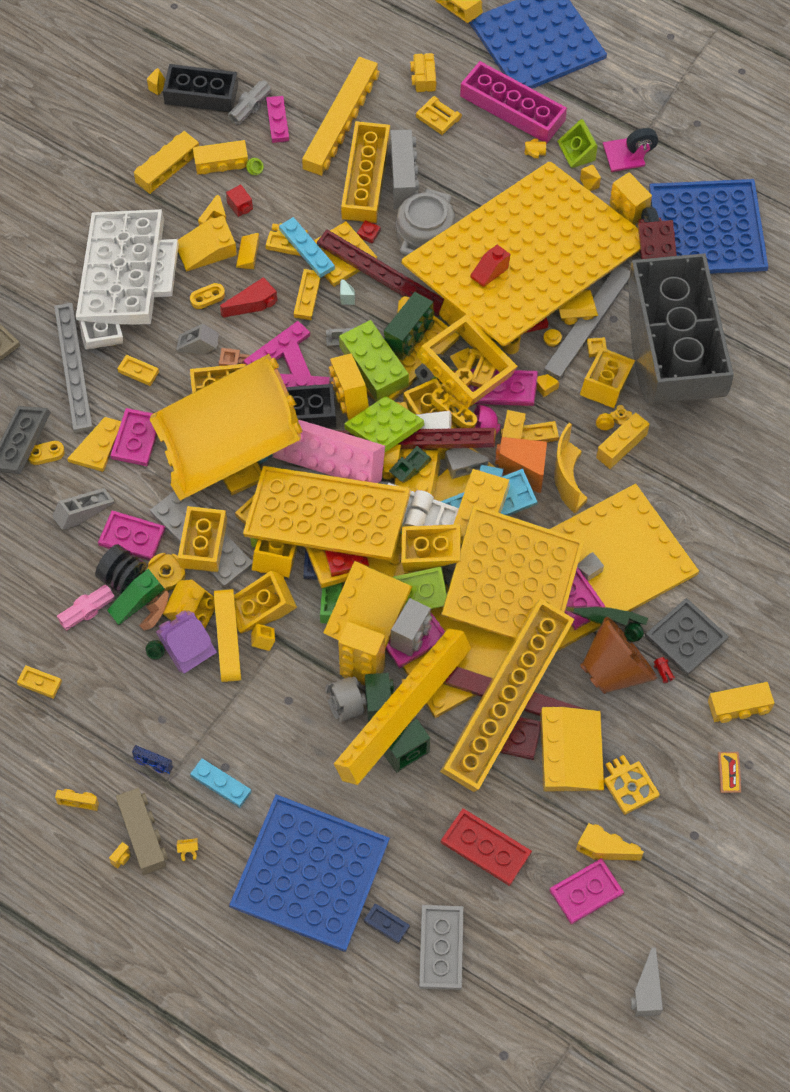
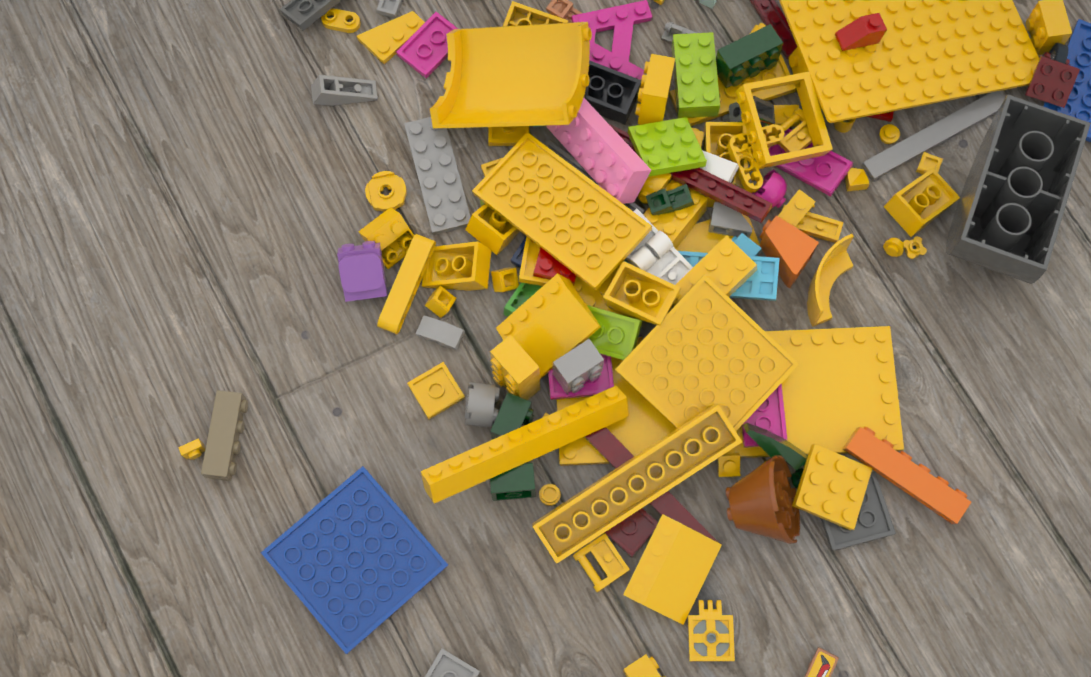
camera: 30 degrees right, 10 degrees up
(39, 682) = (213, 242): yellow plate -> none
(70, 798) = (191, 379): yellow plate -> none
(86, 607) = (293, 190): bright pink piece -> none
(119, 568) = (341, 170): black wheel -> none
(134, 534) = (375, 140): dark pink tile -> none
(135, 596) = (344, 202): green slope -> none
(155, 649) = (331, 264): dark green plate -> none
(156, 608) = (358, 222): nougat slope -> none
(158, 762) = (266, 365): clear blue plate -> none
(187, 845) = (257, 472): yellow tile -> none
(202, 539) = (432, 177): yellow brick -> none
(220, 783) = (323, 425): medium azure plate -> none
(279, 660) = (440, 332): none -> light grey slope
(299, 709) = (436, 390): none -> yellow tile
(306, 594) = (505, 279): none -> yellow slope
(386, 923) = (399, 648): dark blue plate -> none
(440, 743) = (549, 494): none -> yellow plate
(486, 847) = (535, 622): red plate -> none
(514, 768) = (607, 558): none -> yellow plate
(570, 649) = (729, 465): none -> yellow plate
(579, 307) = (935, 116): yellow slope -> none
(590, 566) = (794, 391): light grey slope -> none
(622, 440) = (901, 275): yellow brick -> none
(661, 623) = (832, 487): none -> yellow plate
(663, 669) = (810, 531): red pin -> none
(712, 588) = (907, 475): none -> orange brick
(741, 702) = (870, 608): yellow brick -> none

